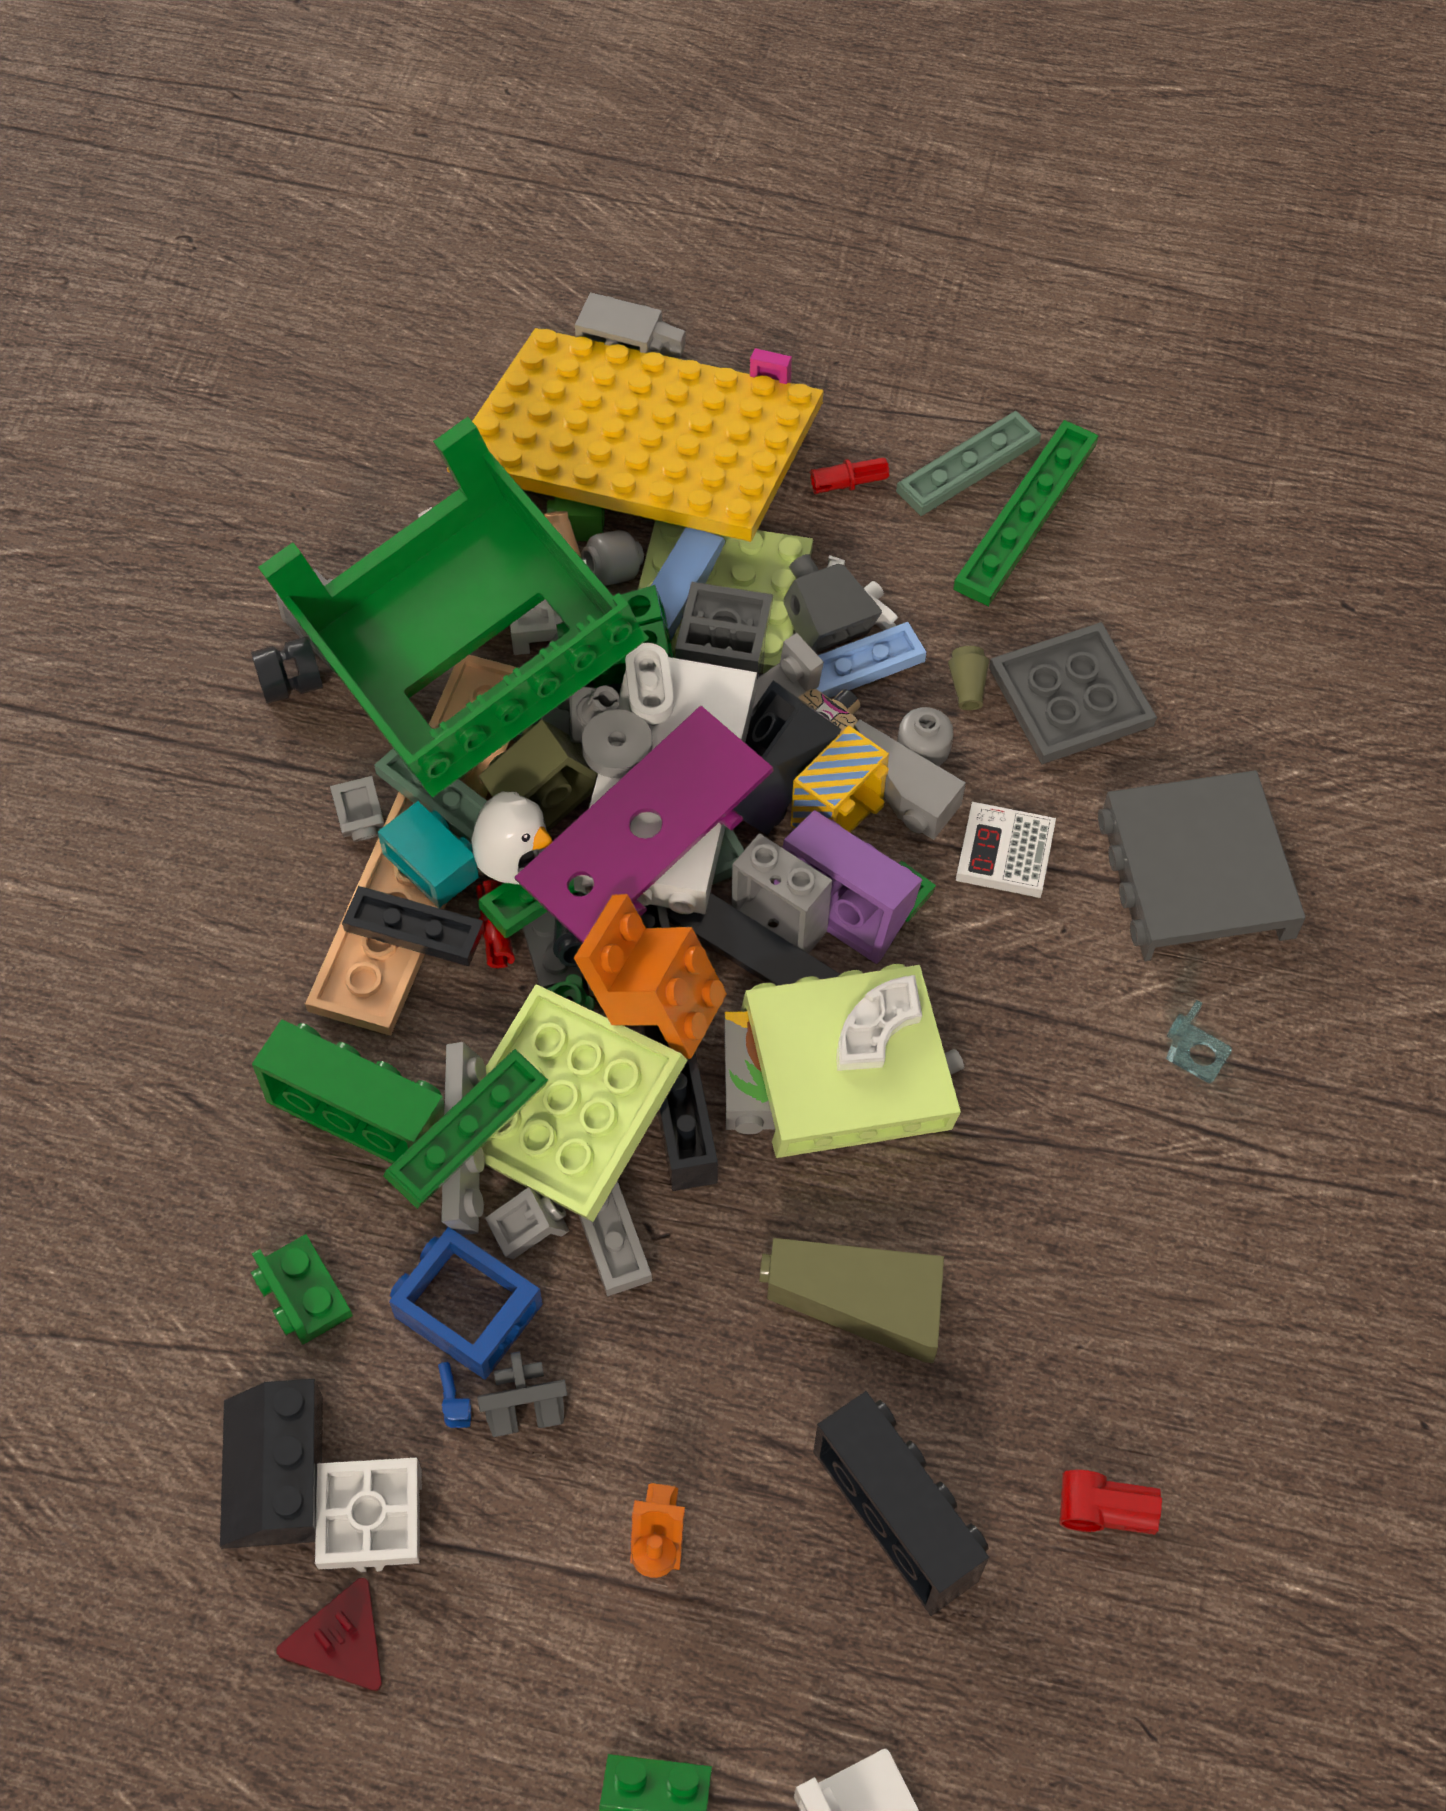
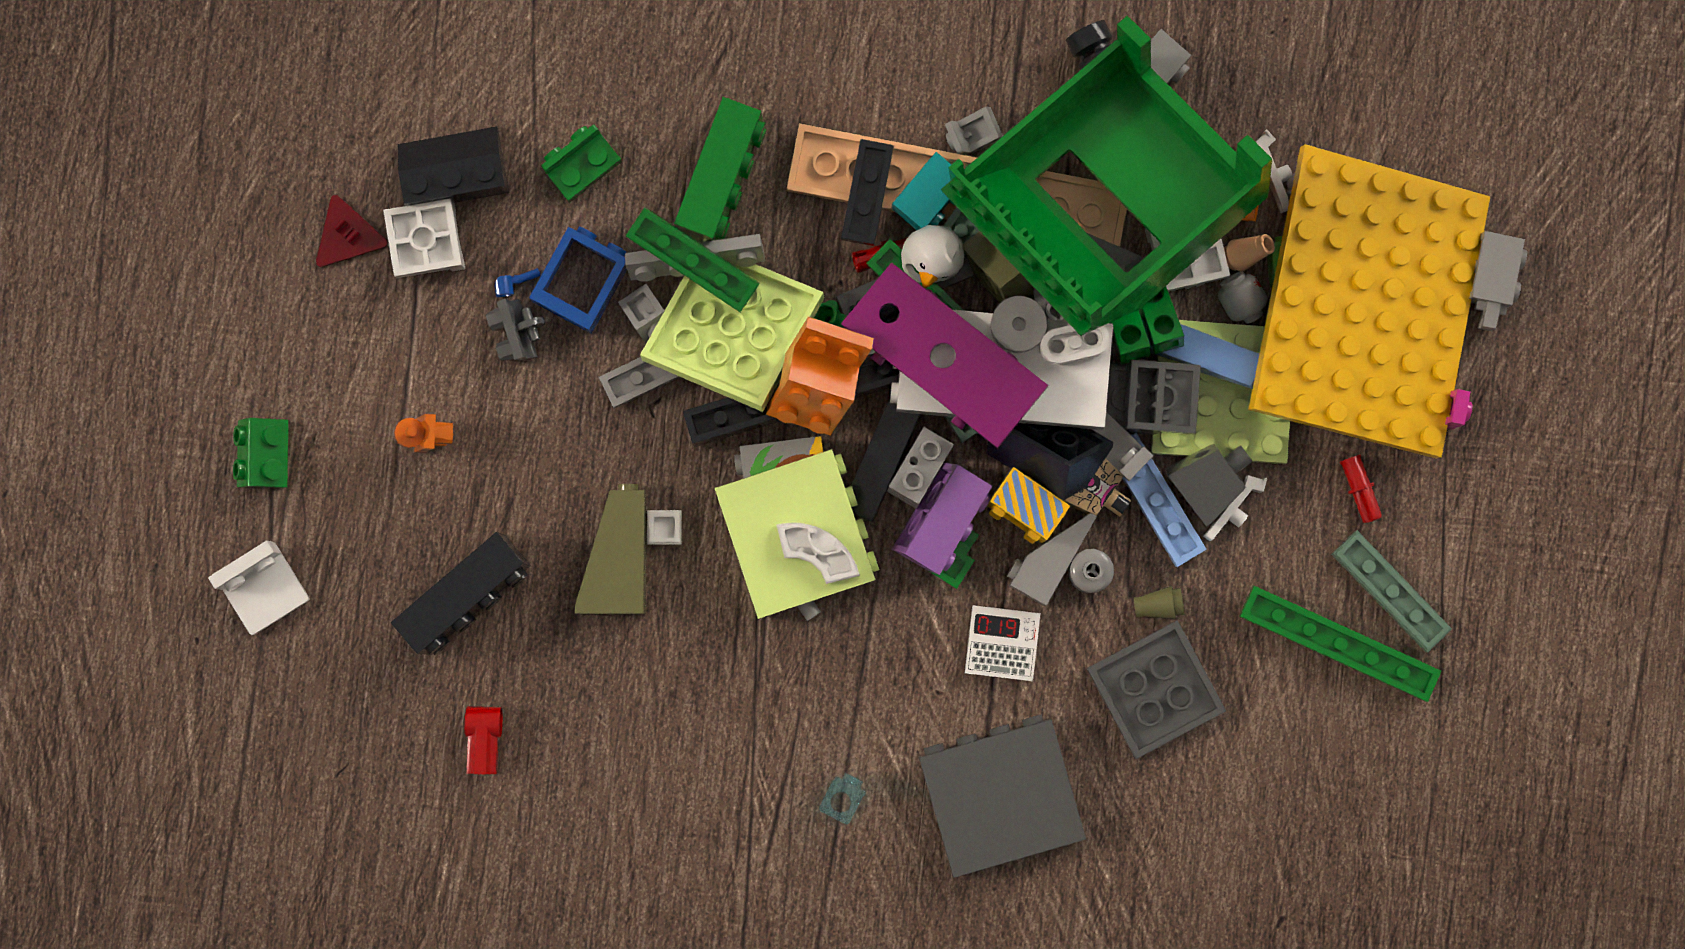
camera: 80 degrees right, 25 degrees up
(824, 1225) = (664, 527): none -> white tile

